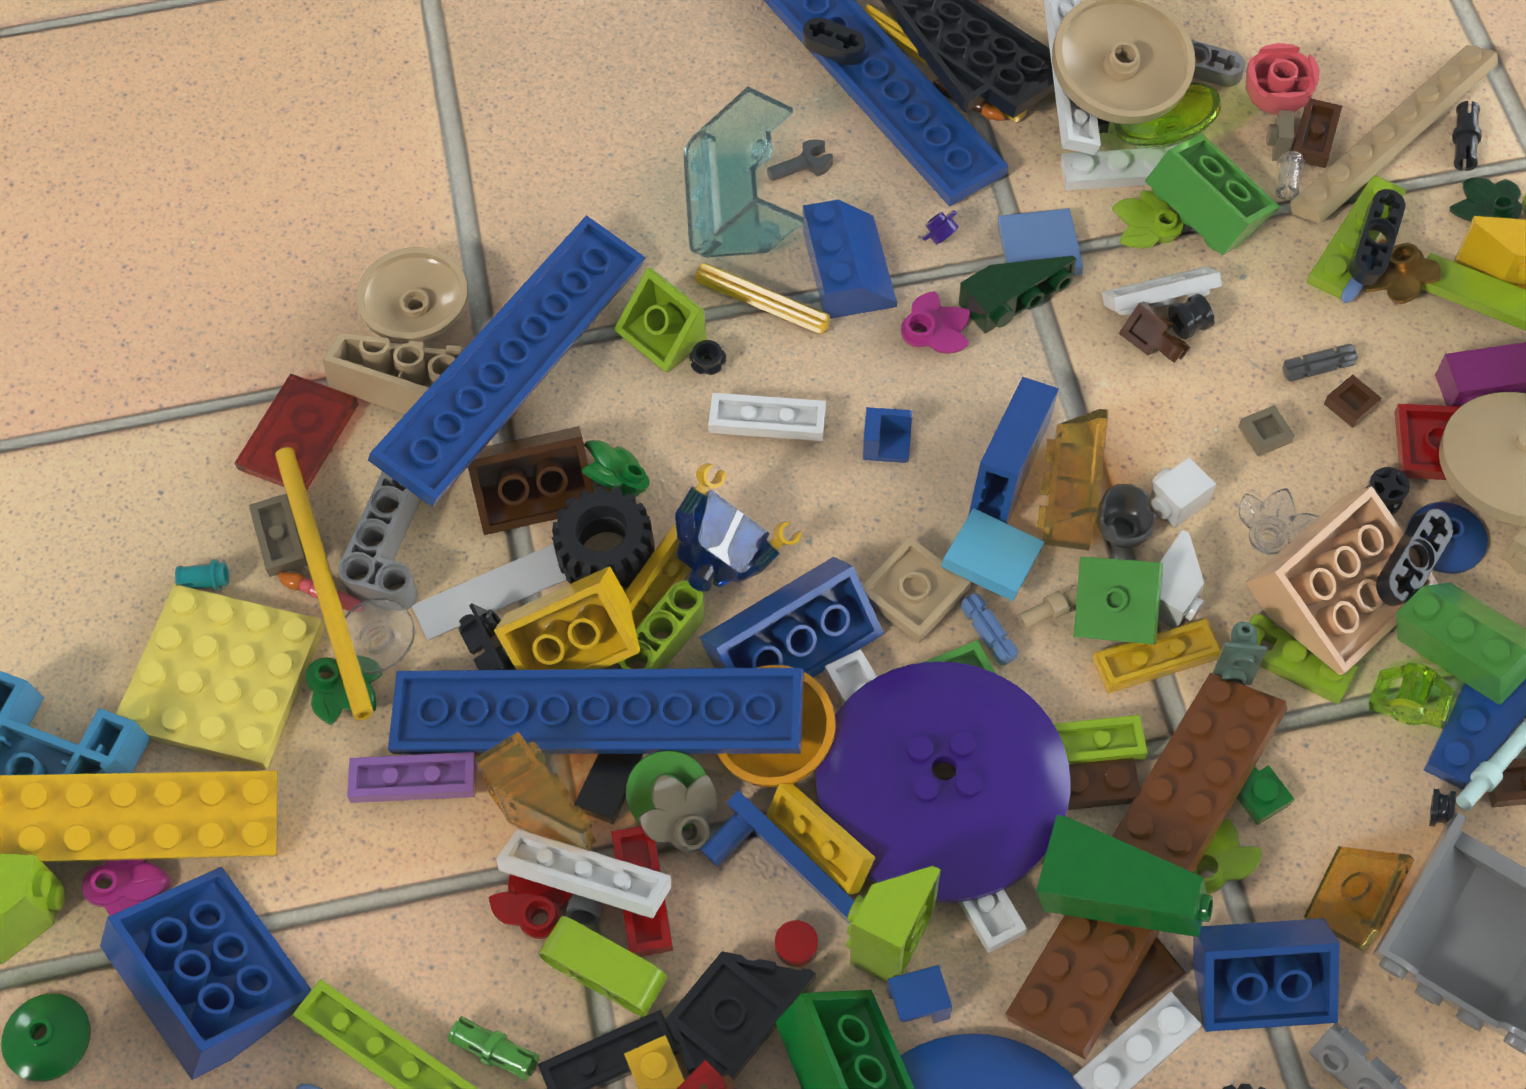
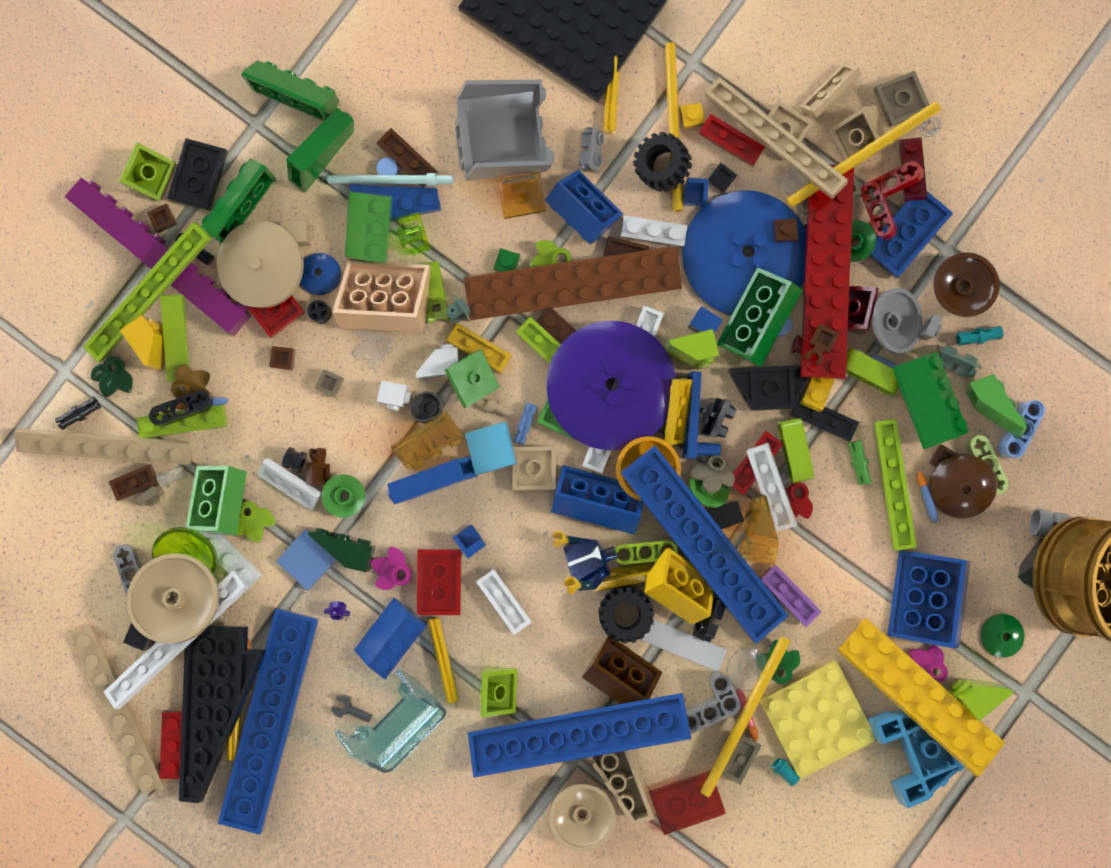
camera: 135 degrees left, 25 degrees up
(615, 468) = (586, 644): green plate -> none
(707, 350) = (496, 661): black plate -> none
(749, 877) = (714, 417): none -> black hips
(796, 943) = (721, 388): red tile -> none
(833, 41) = (275, 753): black beam -> none
(867, 362) = (439, 581): none -> red plate
(1089, 324) = (332, 496): none -> bright green dish
(1119, 884) = (602, 283): green slope -> none
(1281, 78) = (118, 518): coral cylinder -> none
(1319, 362) = (271, 387): dark grey axle -> none
(1399, 563) = (362, 267): black beam -> none
(1442, 807) = (456, 189): black bush -> none

